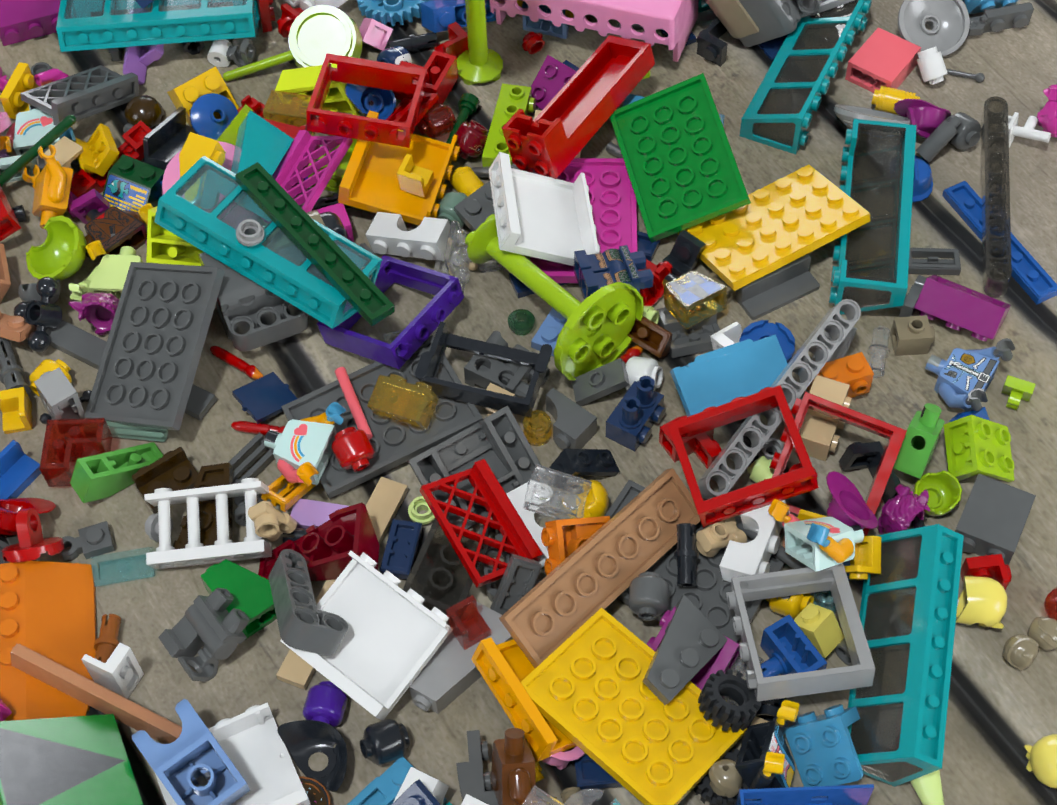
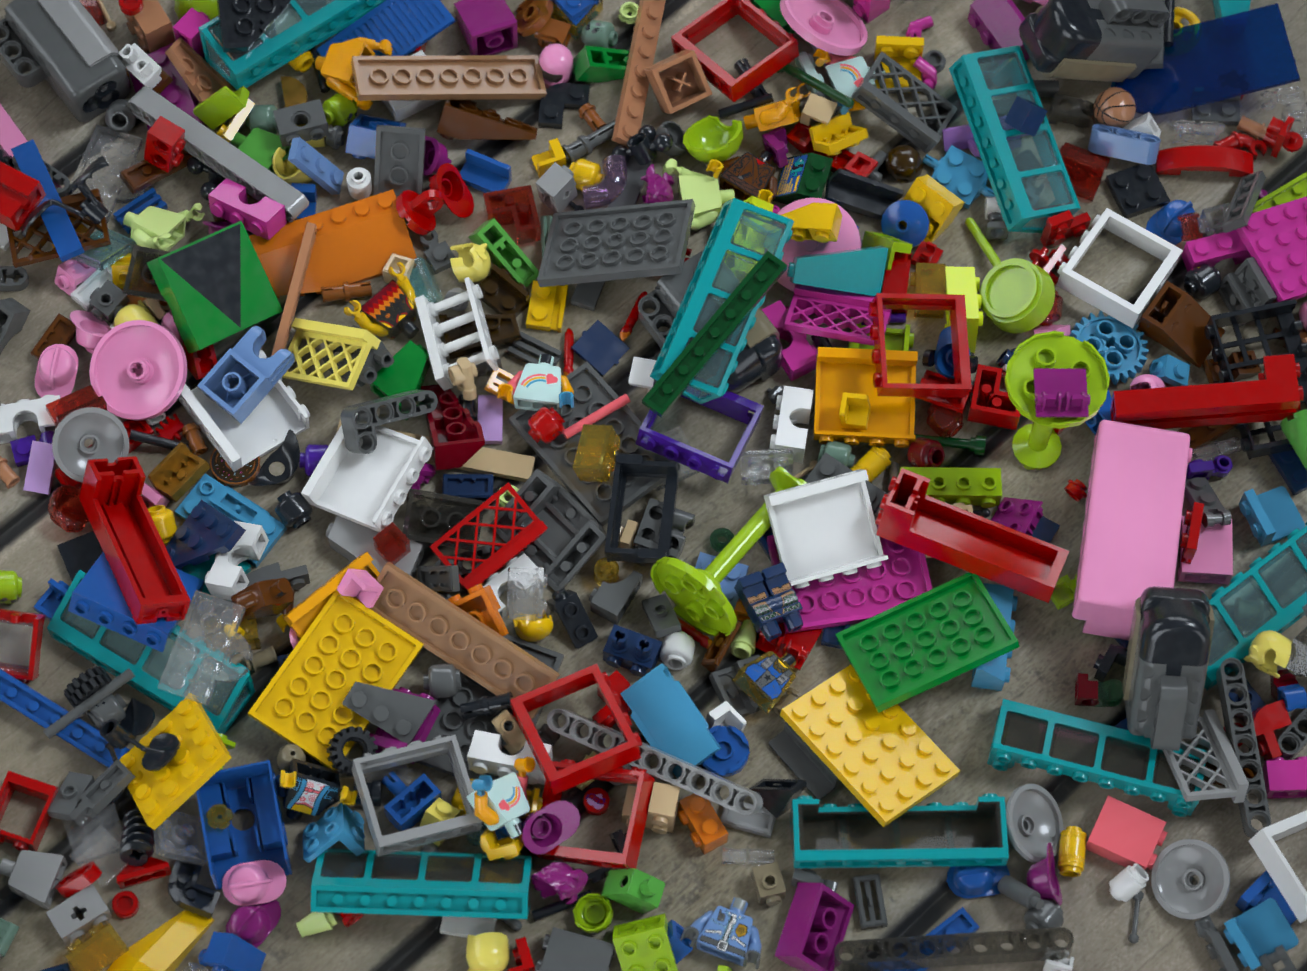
camera: 75 degrees right, 10 degrees up
(26, 224) = (745, 105): none -> black piece
(75, 351) = (610, 186): none -> clear purple cylinder
(99, 583) = (392, 262): none -> tan slope
(119, 501) = (471, 262): none -> light yellow helmet
(119, 673) = (317, 304): white panel -> none
(147, 595) = (389, 310): none -> torso
(173, 70) = (961, 175): none -> dark azure plate
(175, 645) = (333, 337): none -> light yellow fence
(200, 440) = (547, 307): none -> yellow plate
(249, 227) = (715, 274): light grey plate -> none
(312, 355) = (641, 372): none -> white panel
(524, 655) = (360, 585): none -> bright pink panel
(685, 253) = (819, 667): black bracket -> none
(737, 67) = (1097, 693): none -> leg
(815, 304) = (778, 794): none -> black slope

